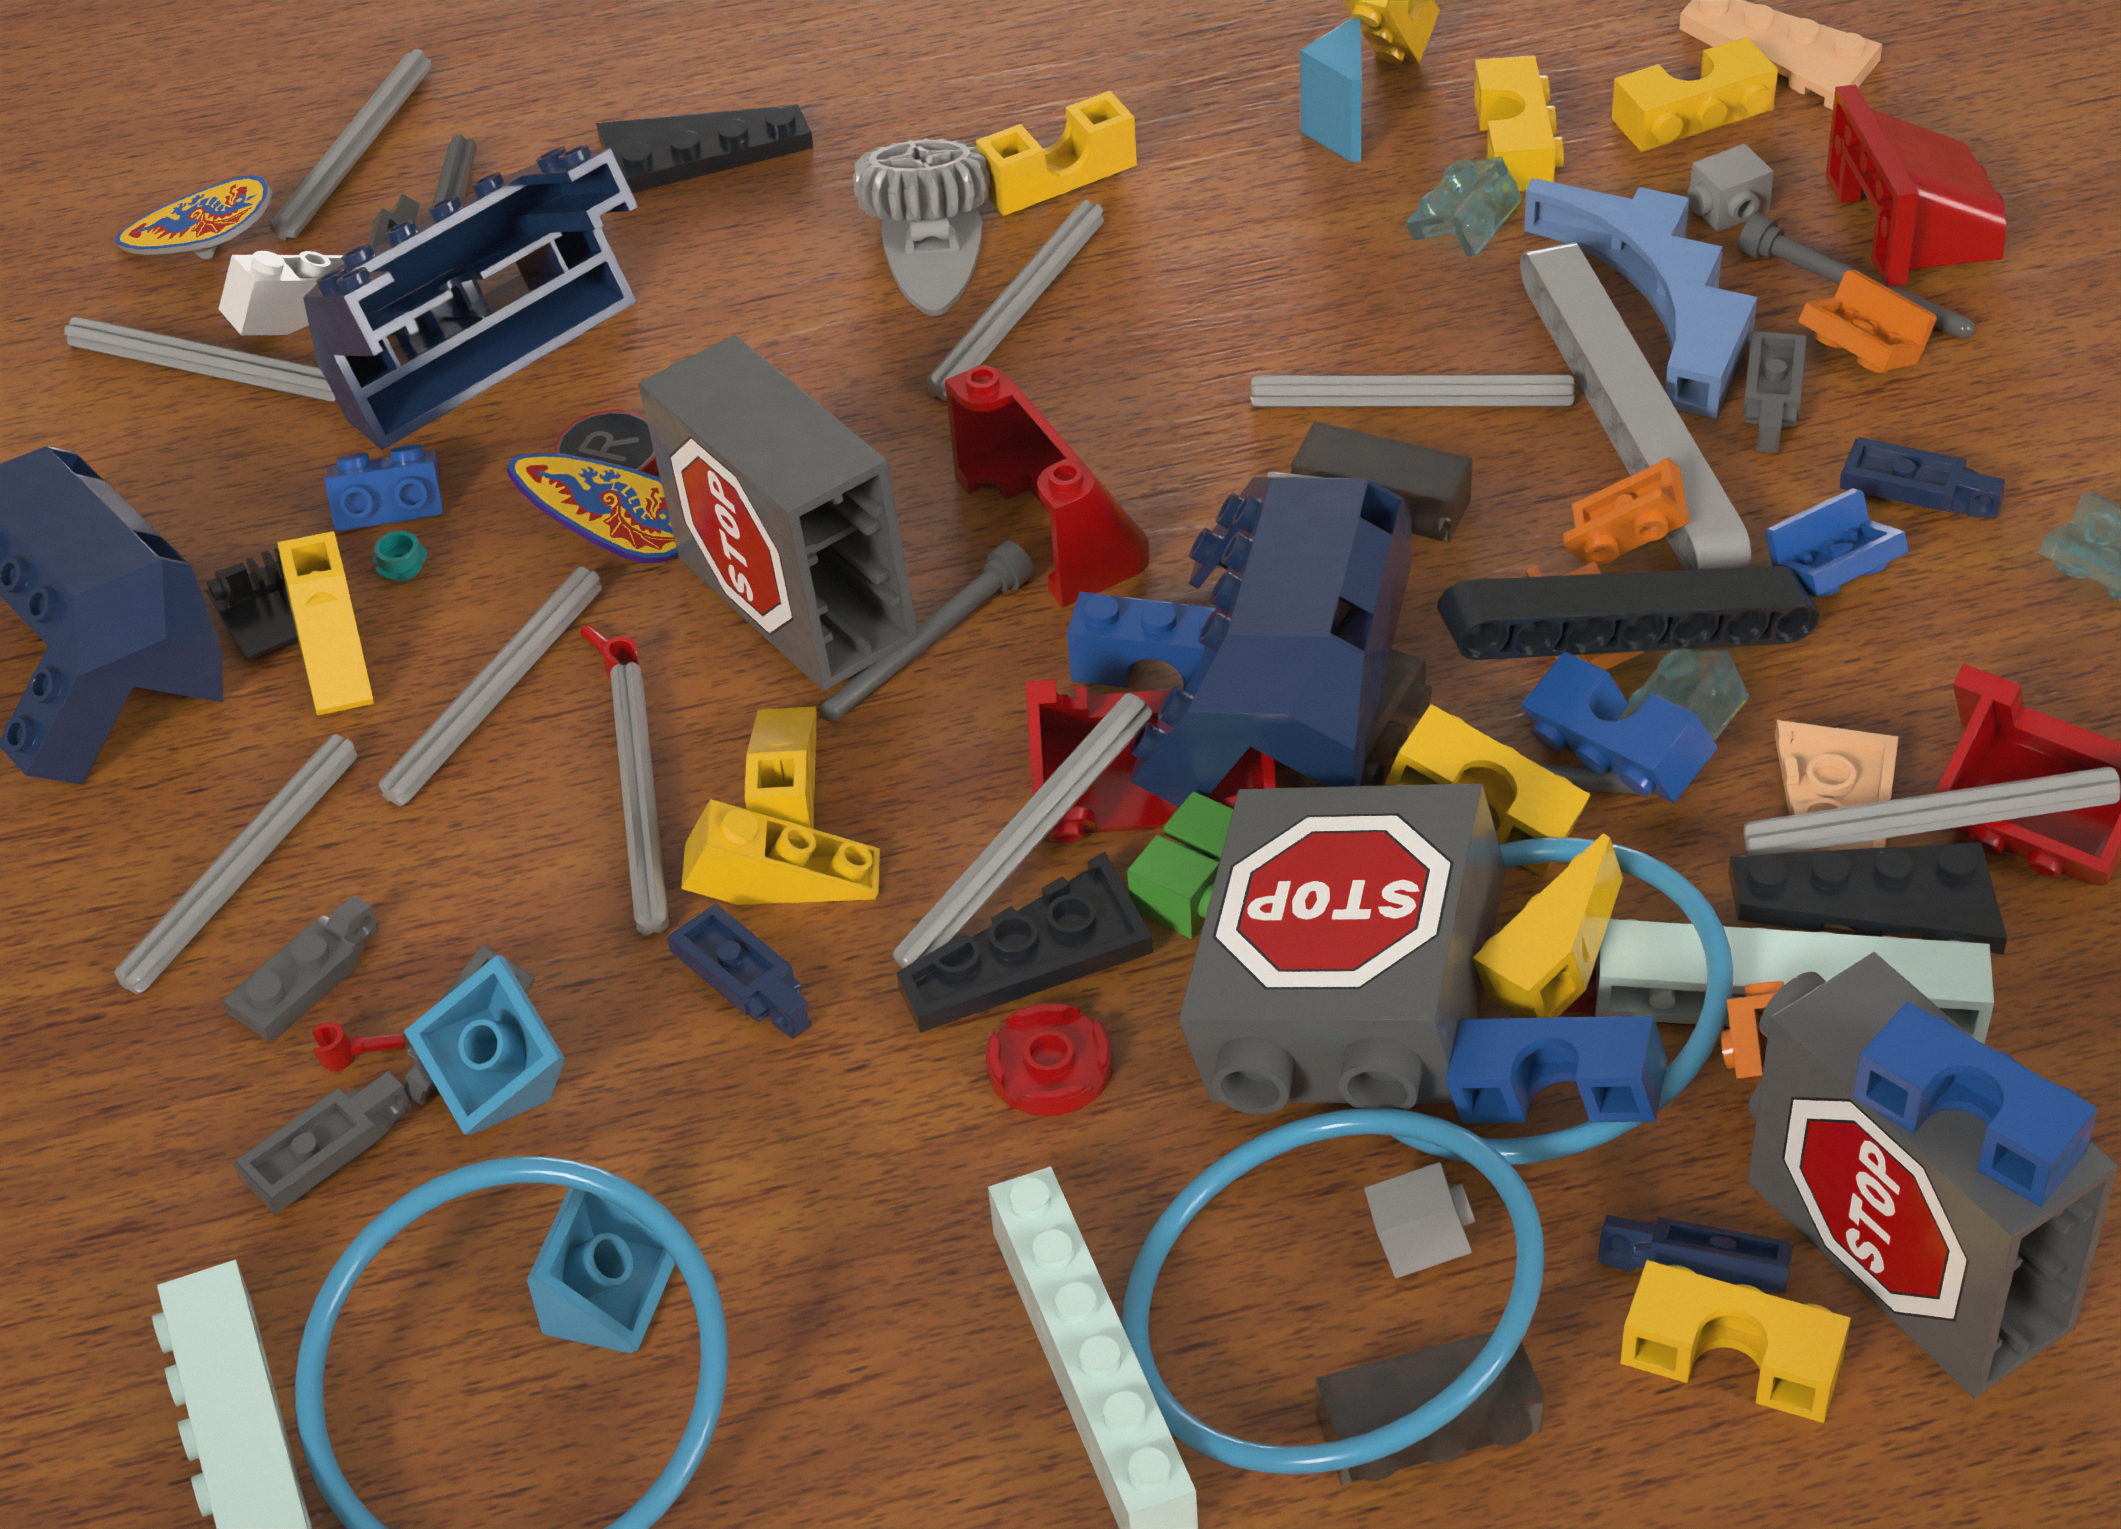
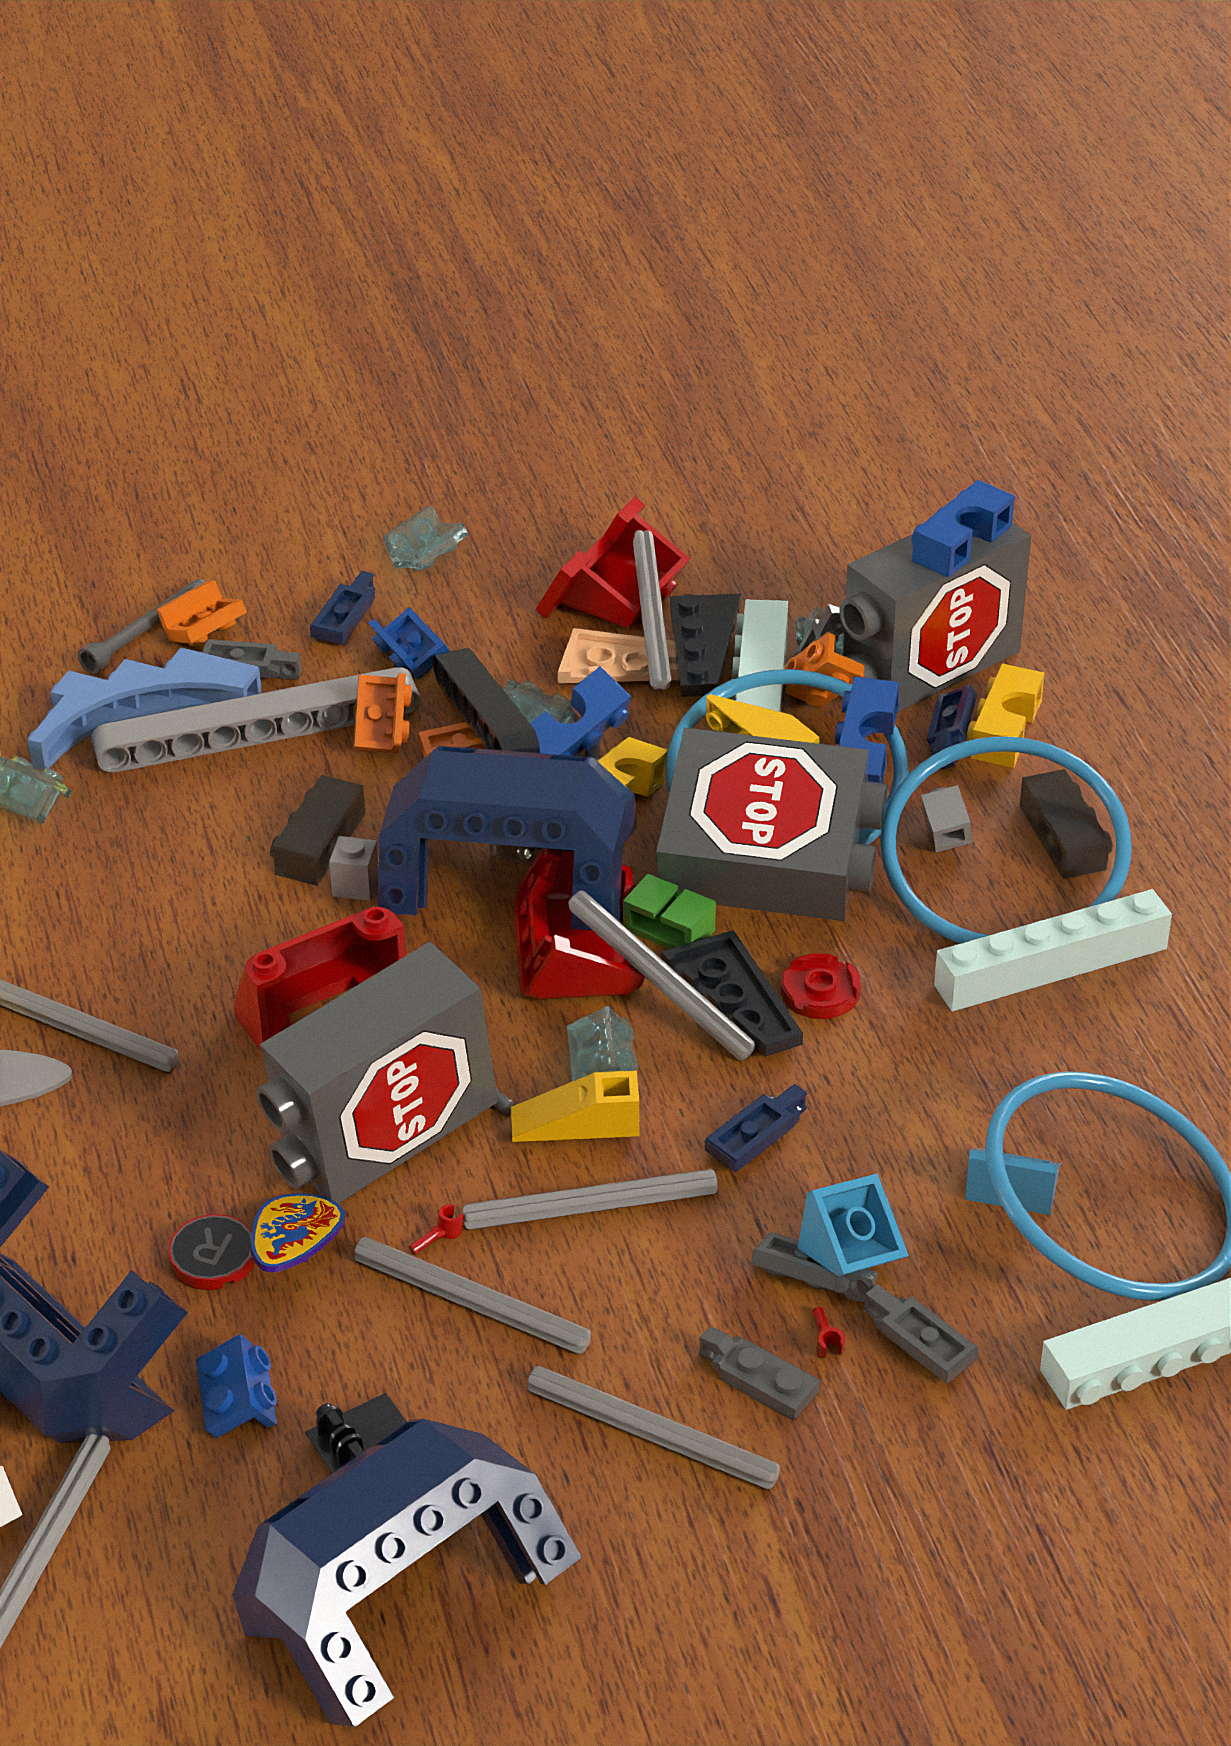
camera: 95 degrees left, 5 degrees down
(325, 623) = (413, 1383): yellow slope -> none
(398, 556) = (324, 1367): teal plate -> none
(773, 861) = (664, 1116): yellow slope -> none
(912, 801) = (601, 1044): none -> clear light blue bracket
(1117, 631) = (474, 919): blue arch -> none
(1411, 391) = (218, 823): light grey axle -> none
(1730, 187) = (42, 662): light grey brick -> none
(1923, 186) = (81, 570): red windscreen -> none

